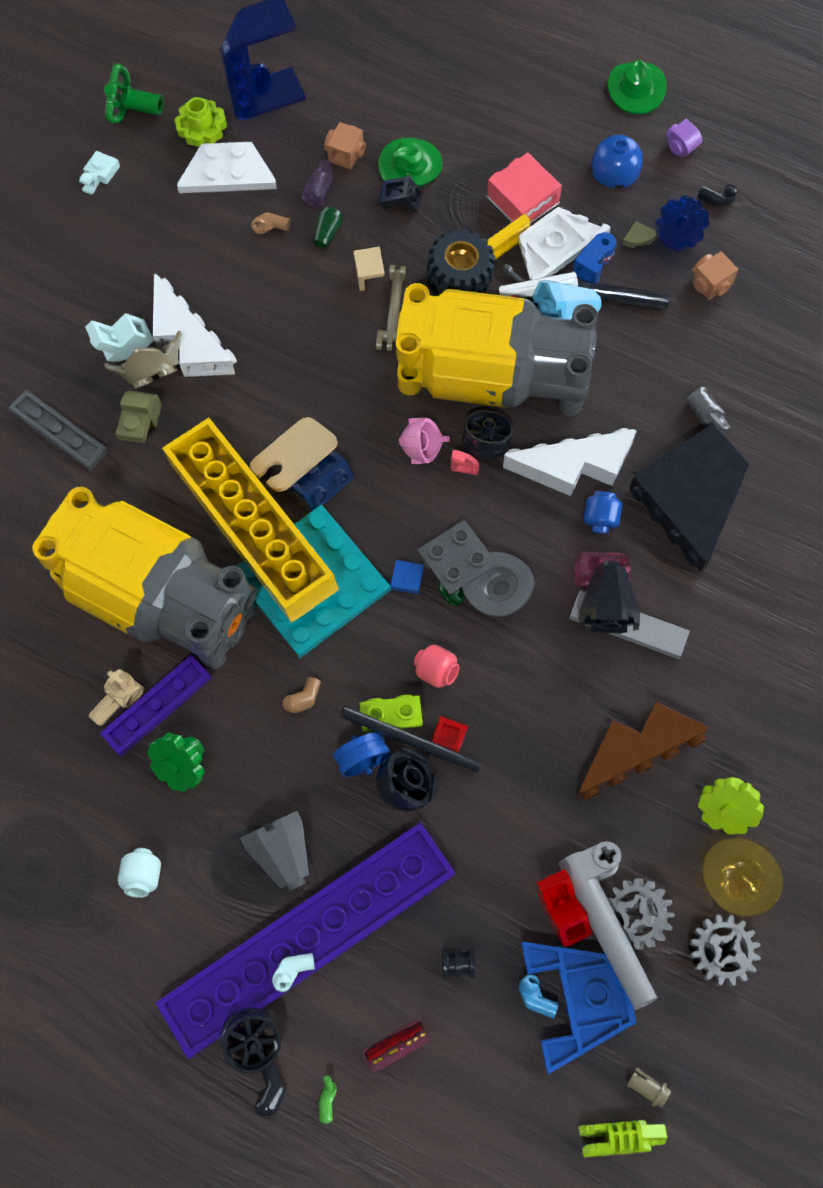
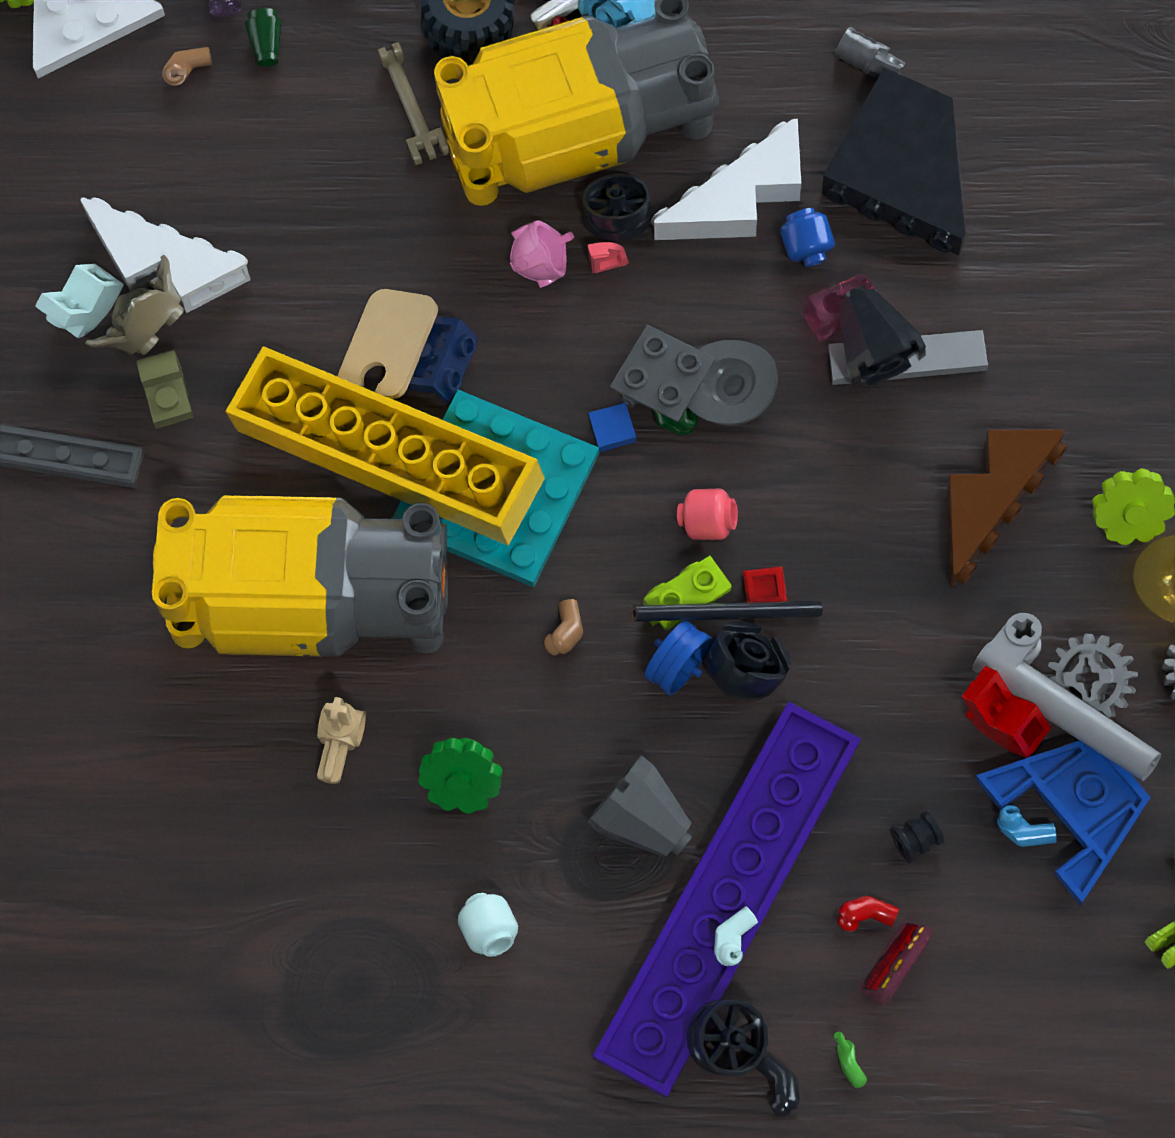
camera: 25 degrees left, 0 degrees up
(155, 705) = (392, 726): dark purple plate -> none
(368, 265) = (348, 63): tan panel -> none
(397, 996) = (864, 908): none -> red arm

